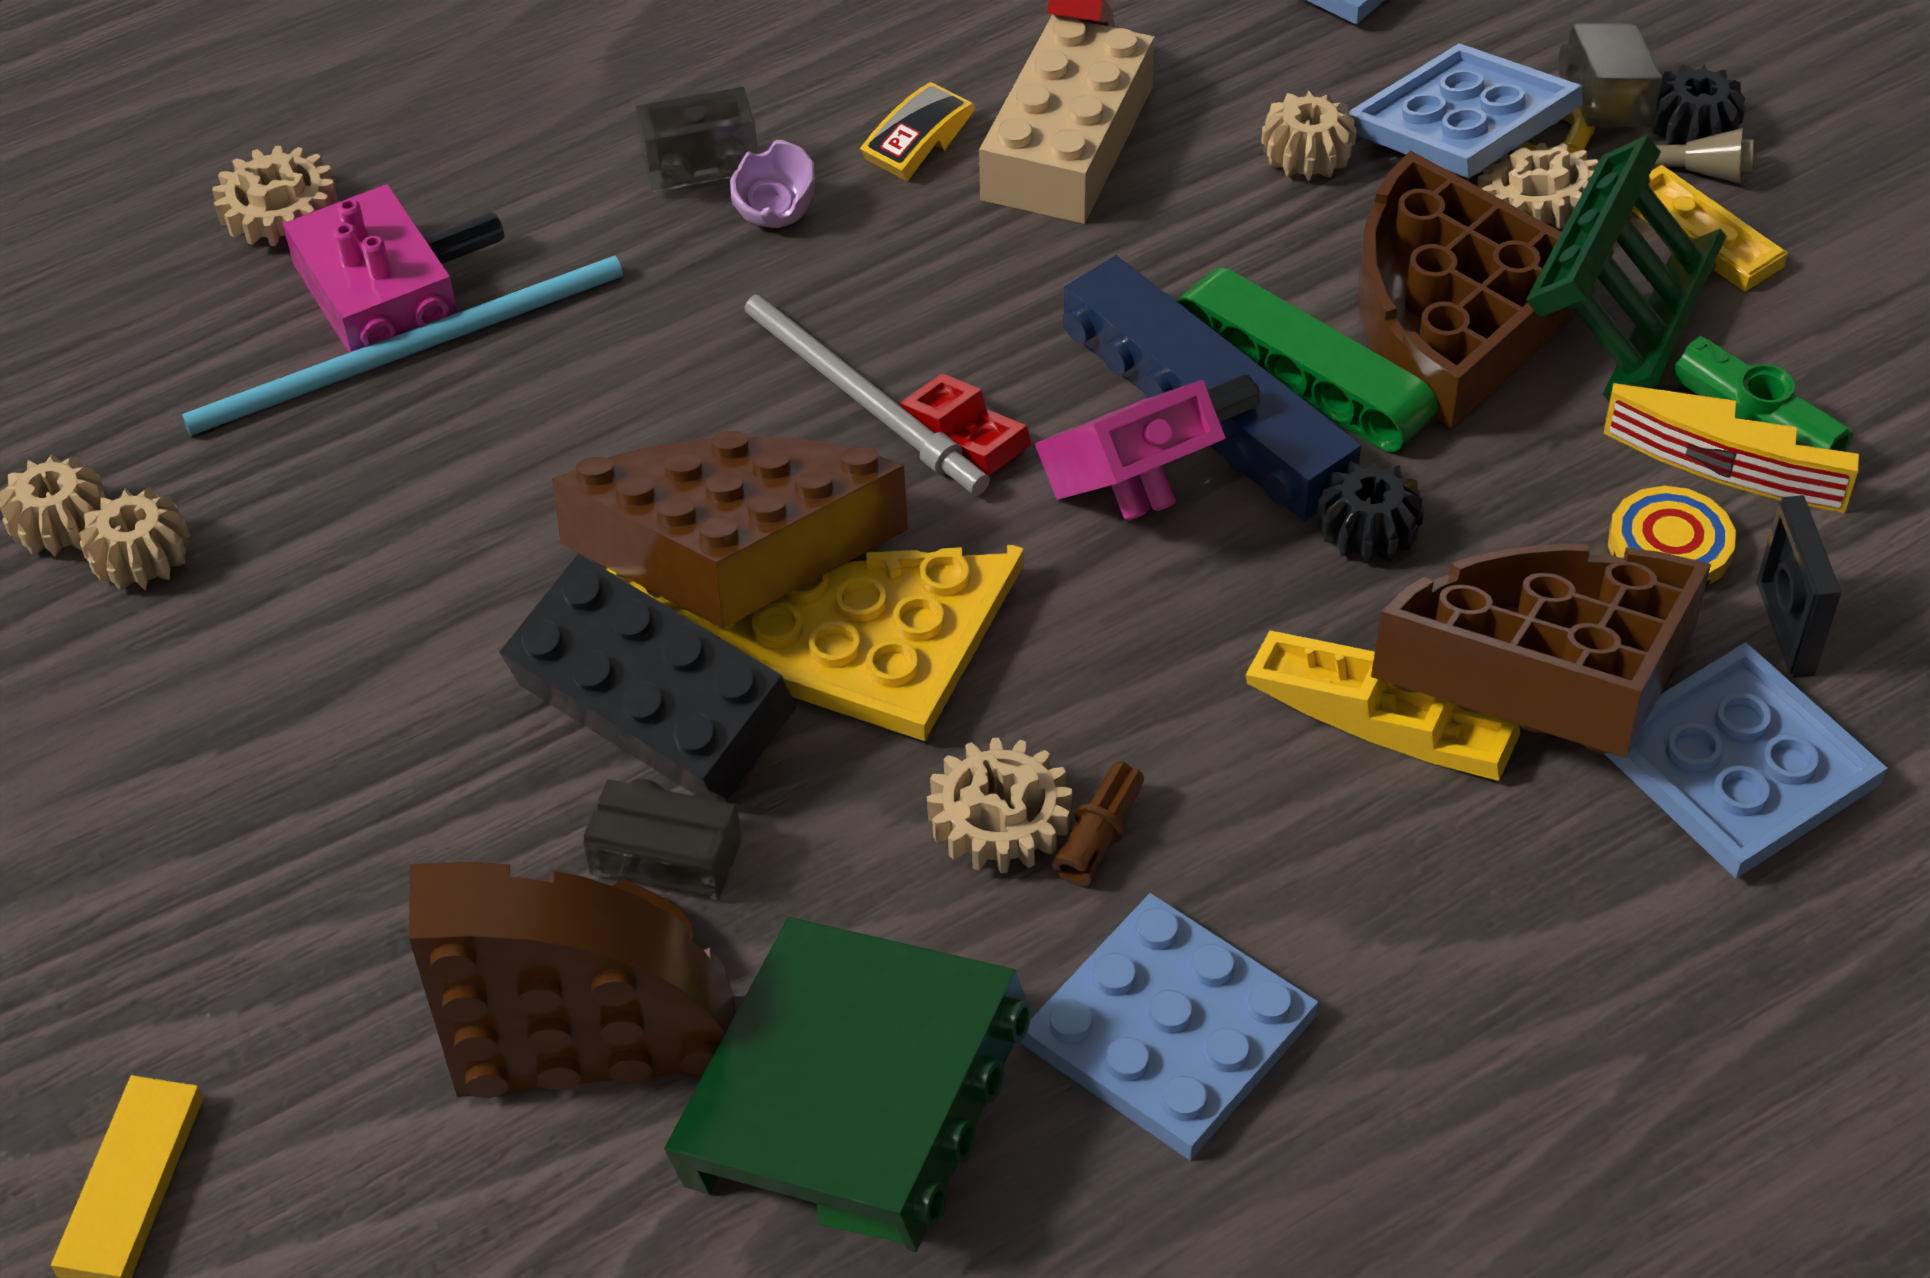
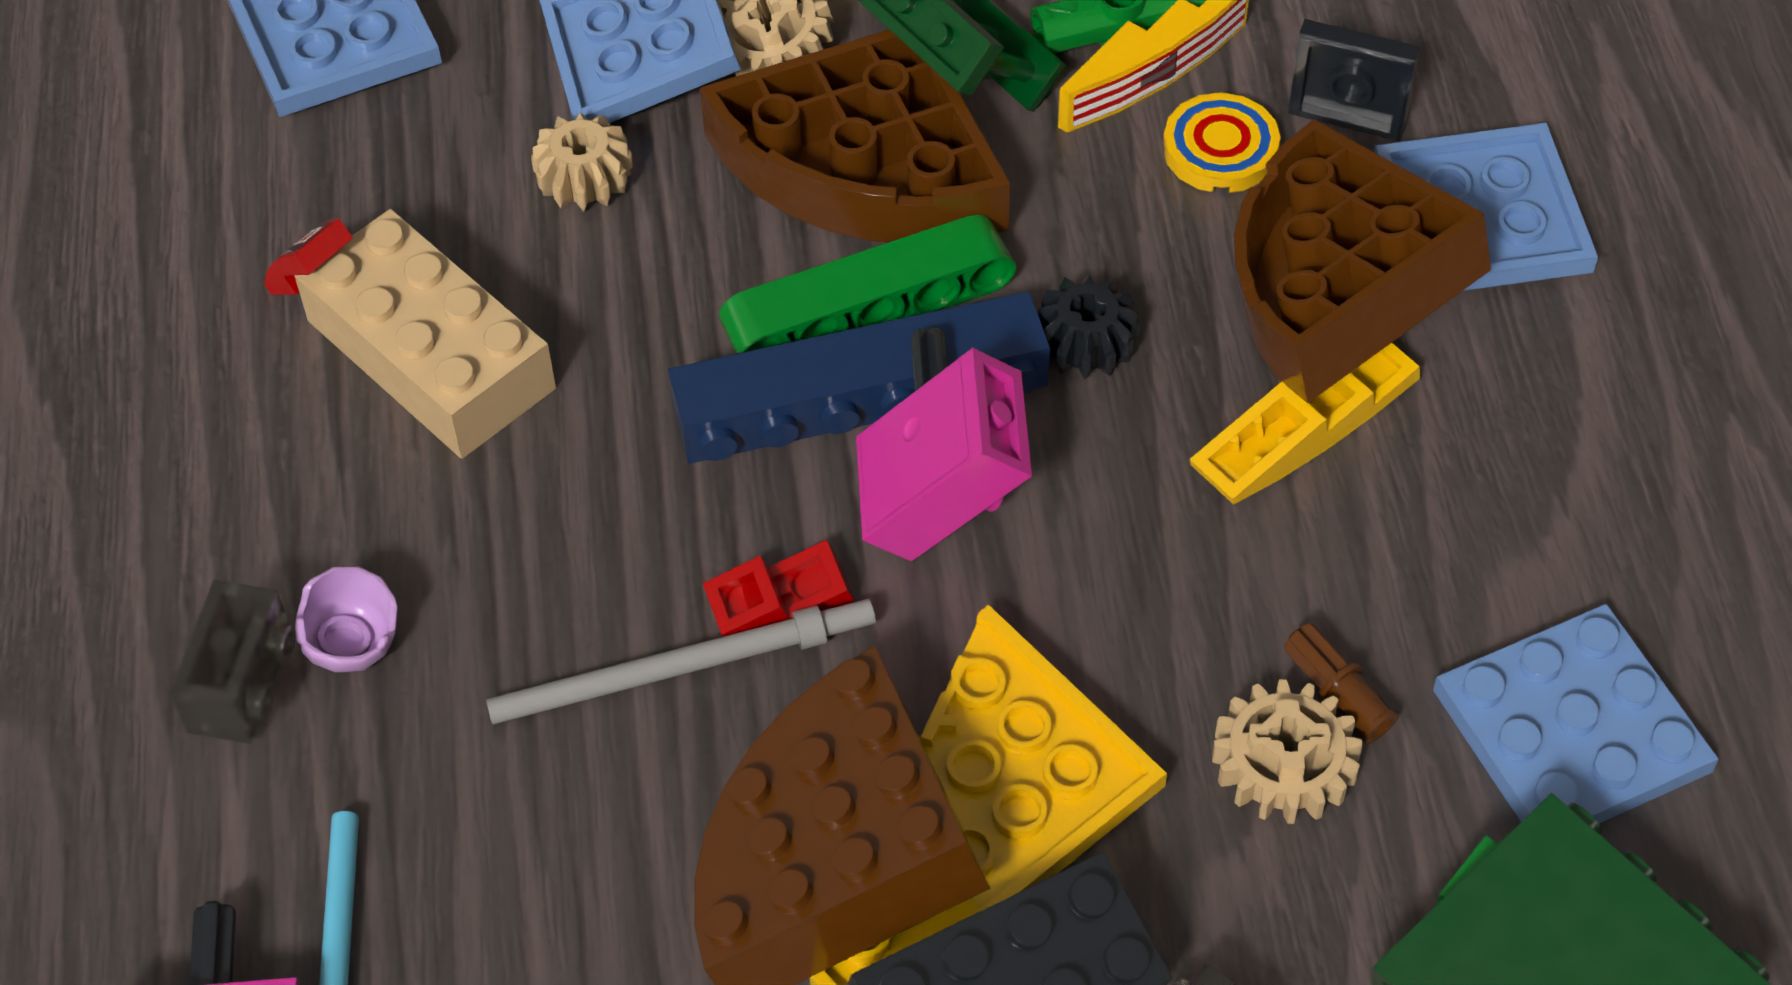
camera: 65 degrees left, 5 degrees up
(914, 127) = (337, 467): slope -> none

